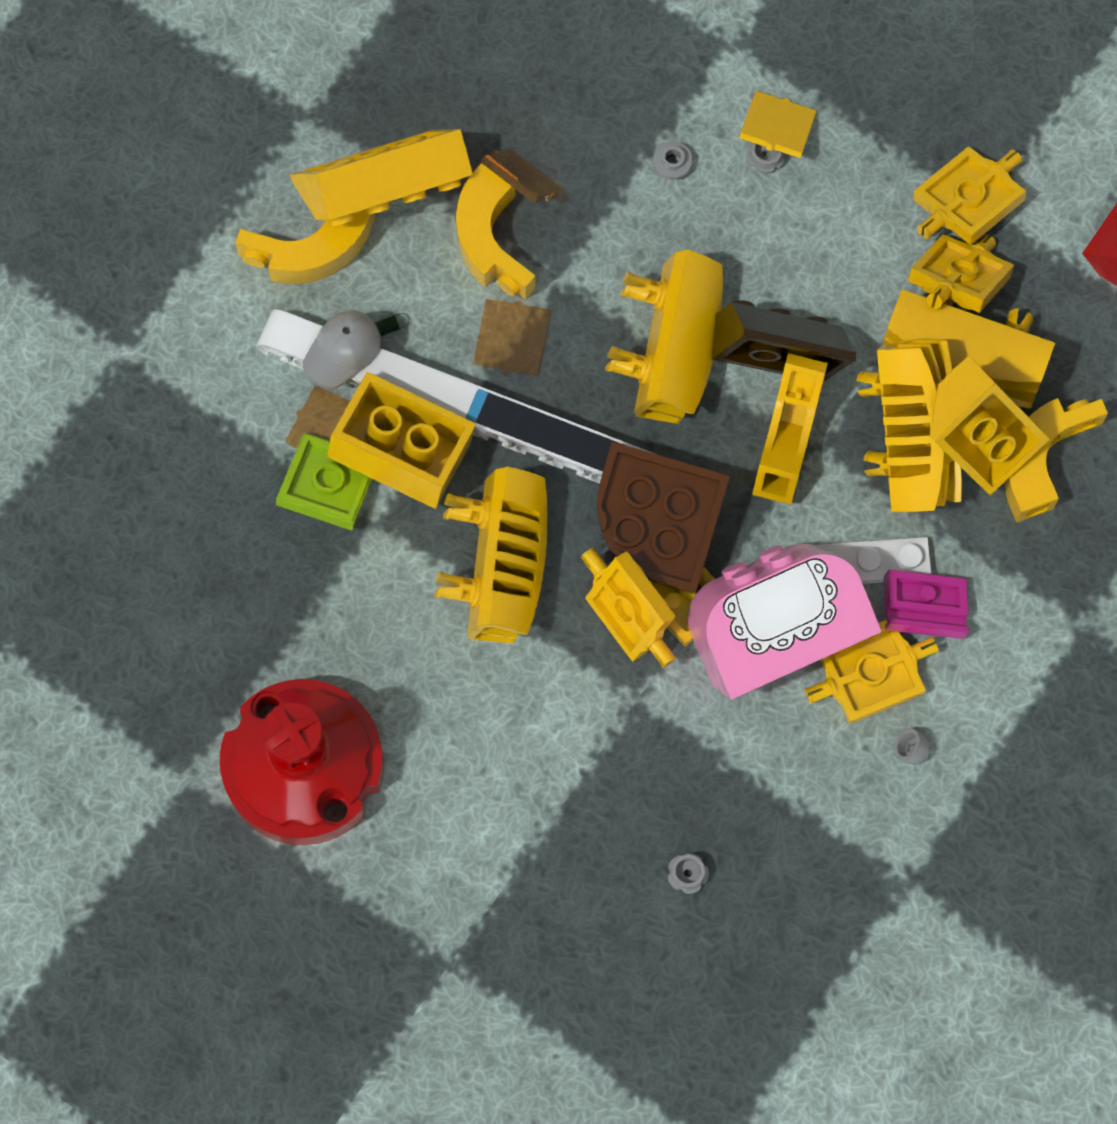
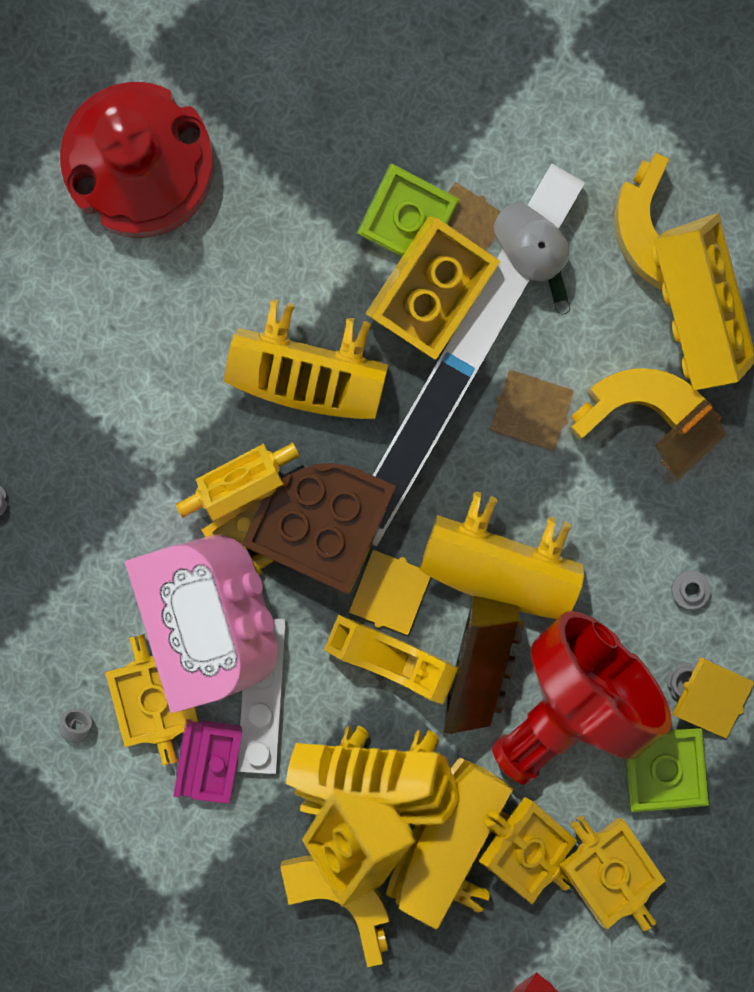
camera: 90 degrees right, 15 degrees up
(723, 447) = (390, 592): none -> yellow piece
(797, 229) = (589, 694): none -> red piece
(857, 161) = (669, 773): none -> lime plate

